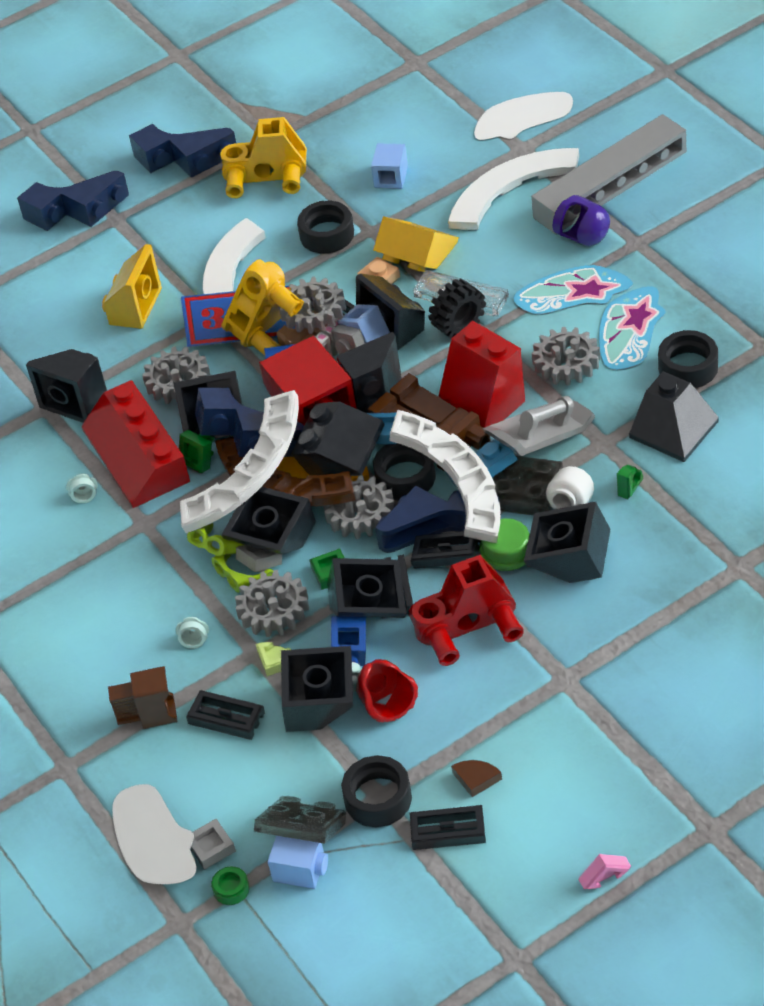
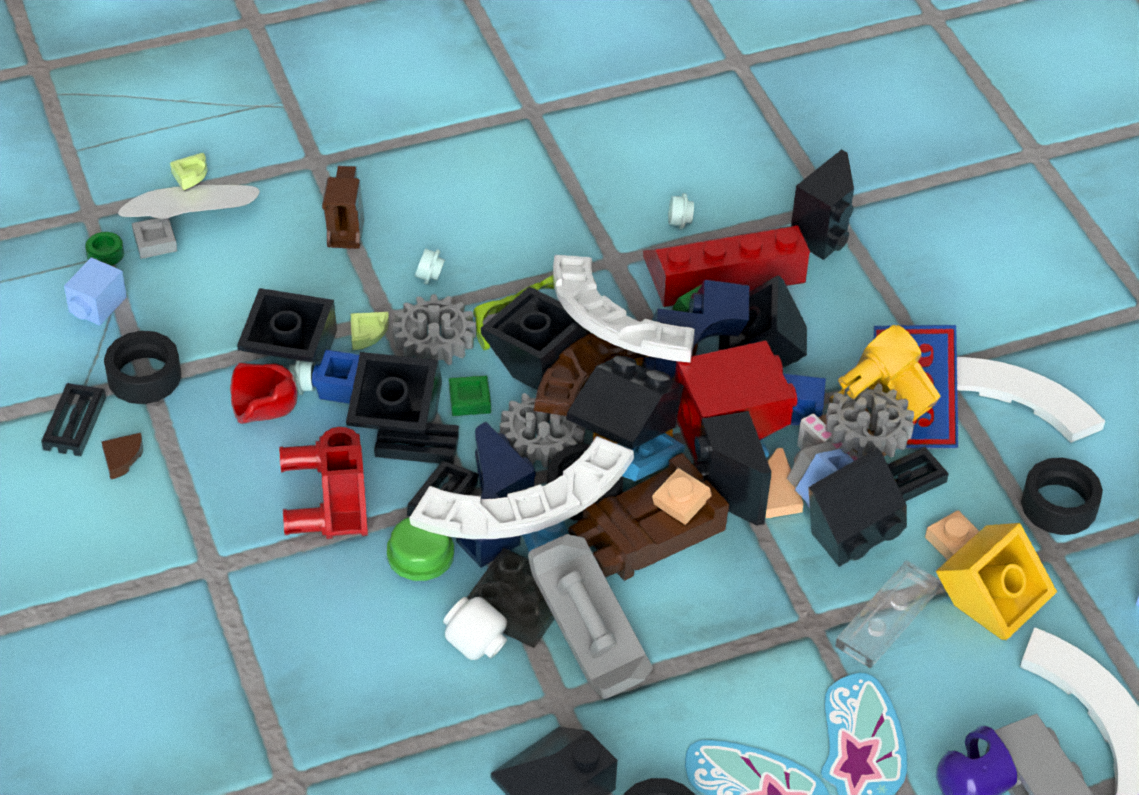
camera: 95 degrees right, 0 degrees up
(108, 853) = (189, 170): none -> yellowish green tile
(133, 290) = (981, 289): yellow slope -> none
(173, 368) = (849, 308): light grey gear -> none
(222, 718) = (319, 279): black tile -> none
(301, 821) = (128, 292): clear smoke tile -> none
(411, 397) = (681, 496): none -> light nougat plate
(456, 307) = (833, 580): black tyre -> none
(483, 374) = (689, 576): red slope -> none
(569, 542) = (384, 600): black slope -> none
(579, 359) = (692, 691): light grey gear -> none
(628, 480) = (472, 697): green tile -> none

